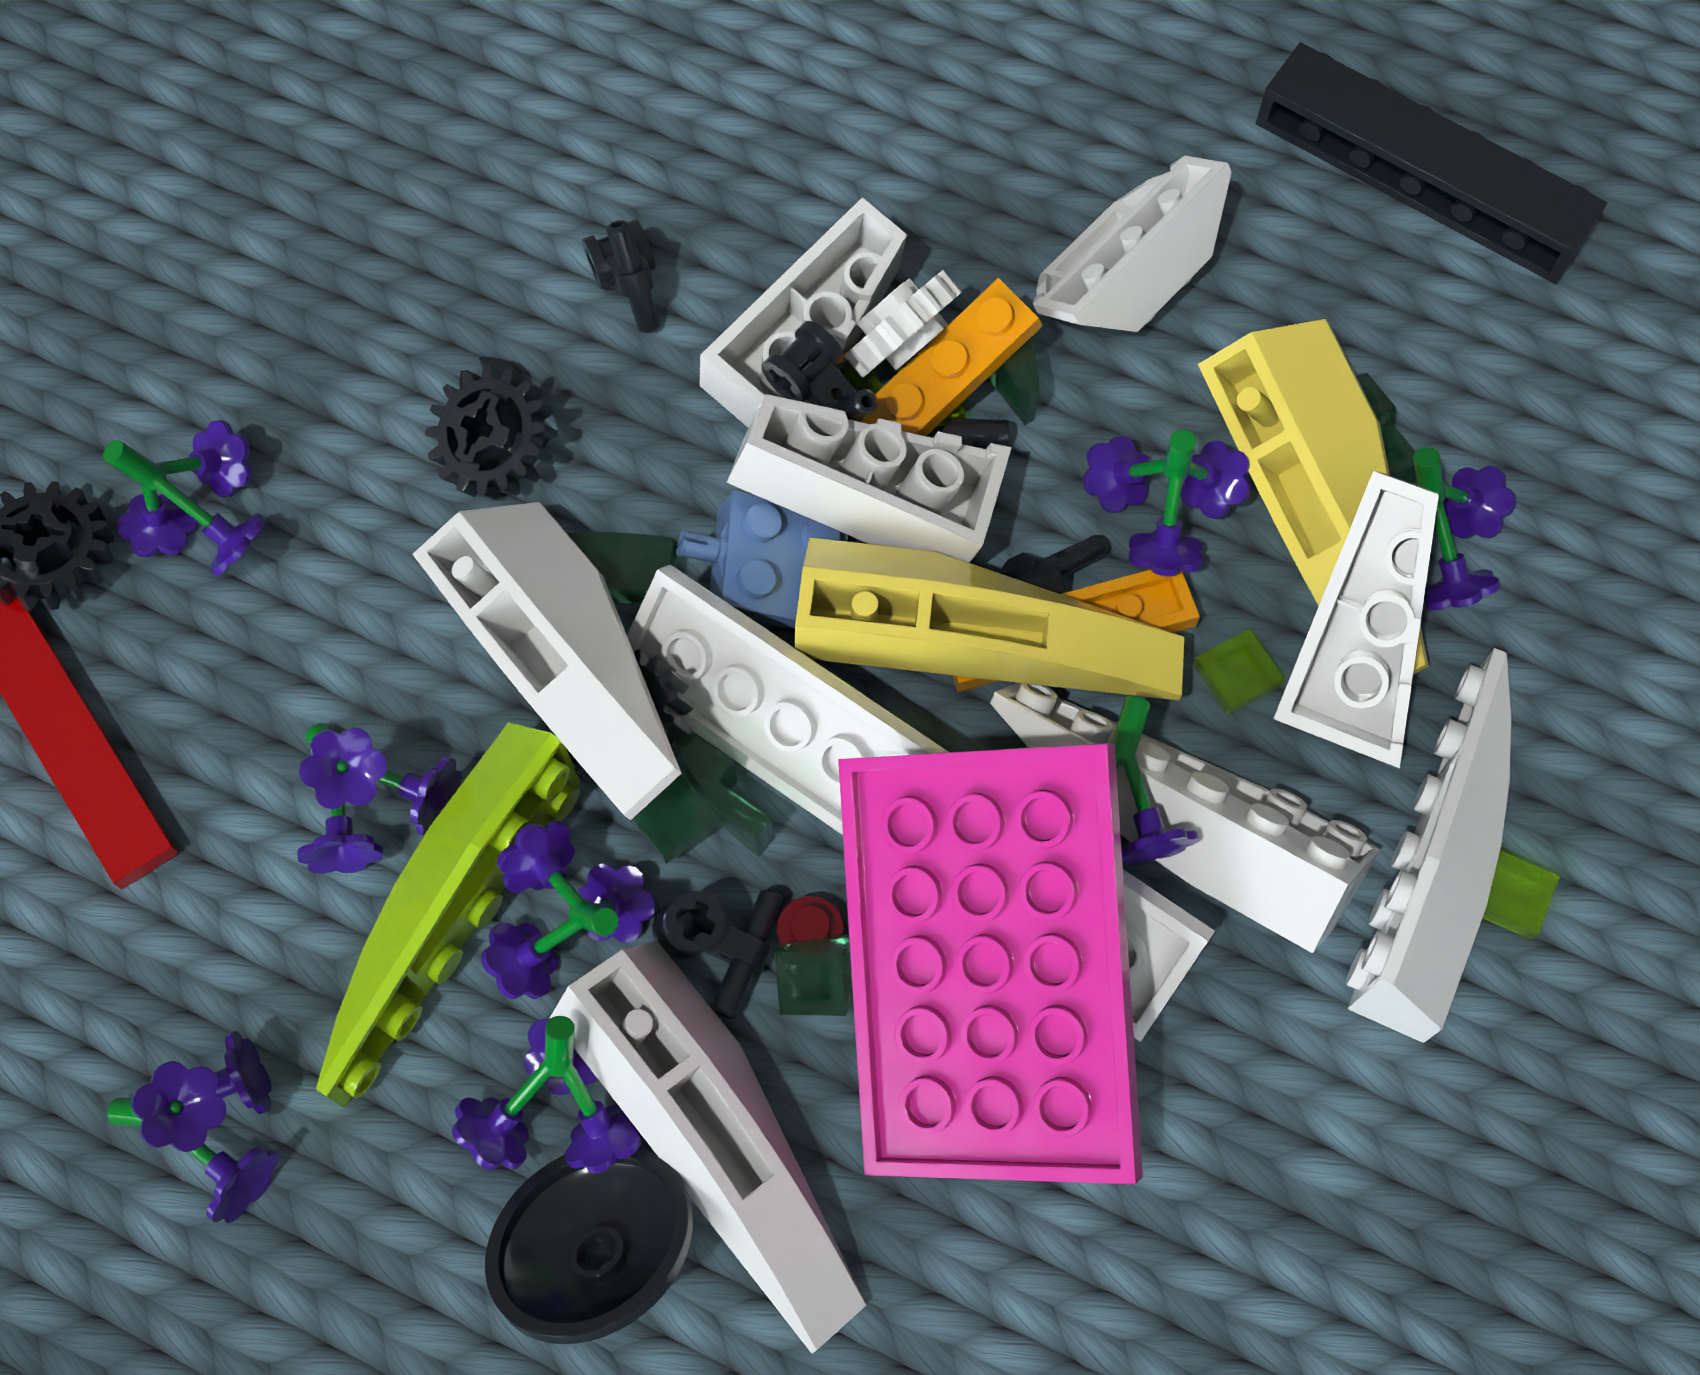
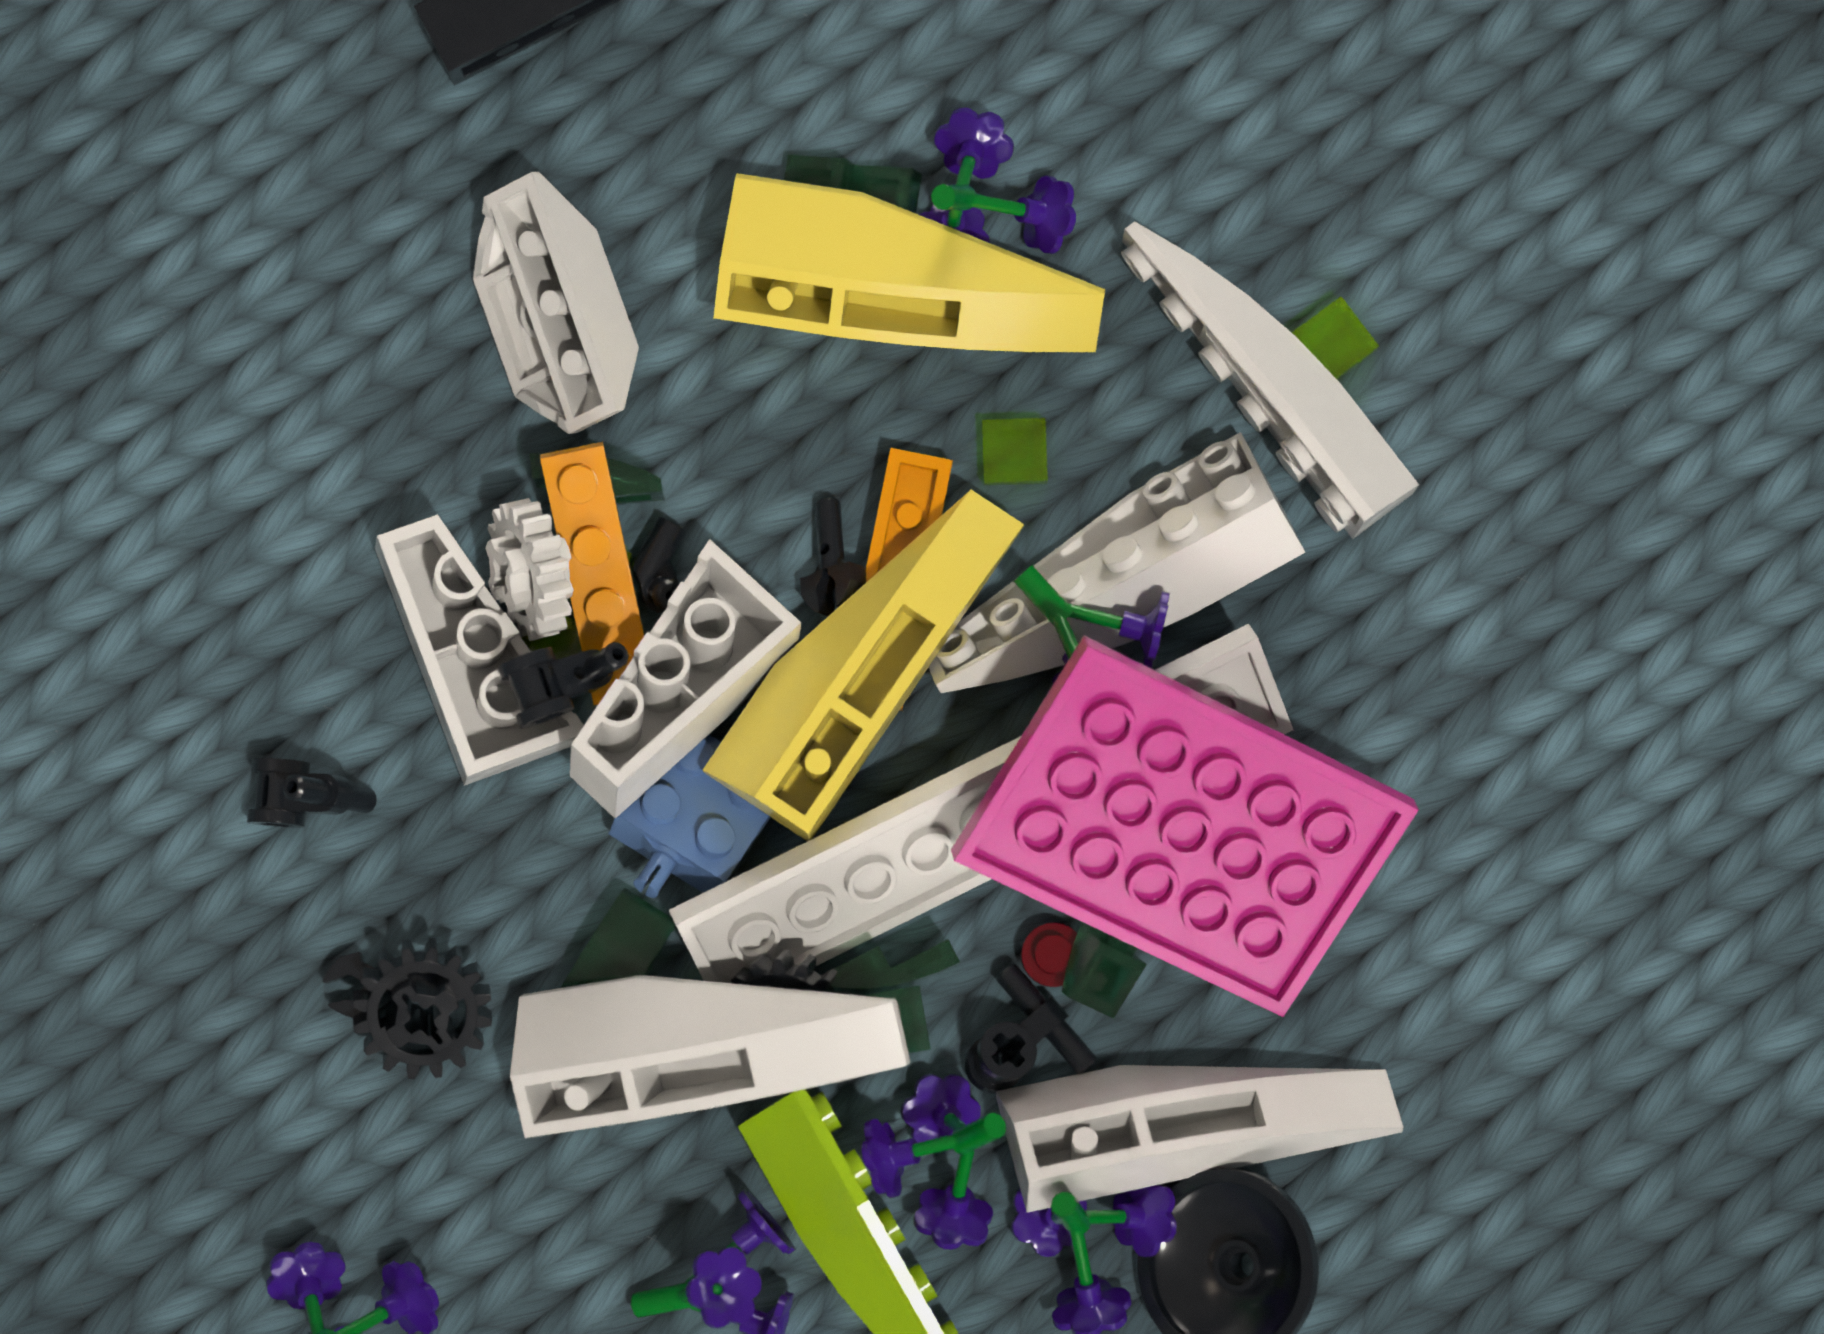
camera: 65 degrees left, 15 degrees up
(1211, 483) = (829, 371): dark purple plant -> none
(1364, 637) = (1065, 345): white wedge -> none

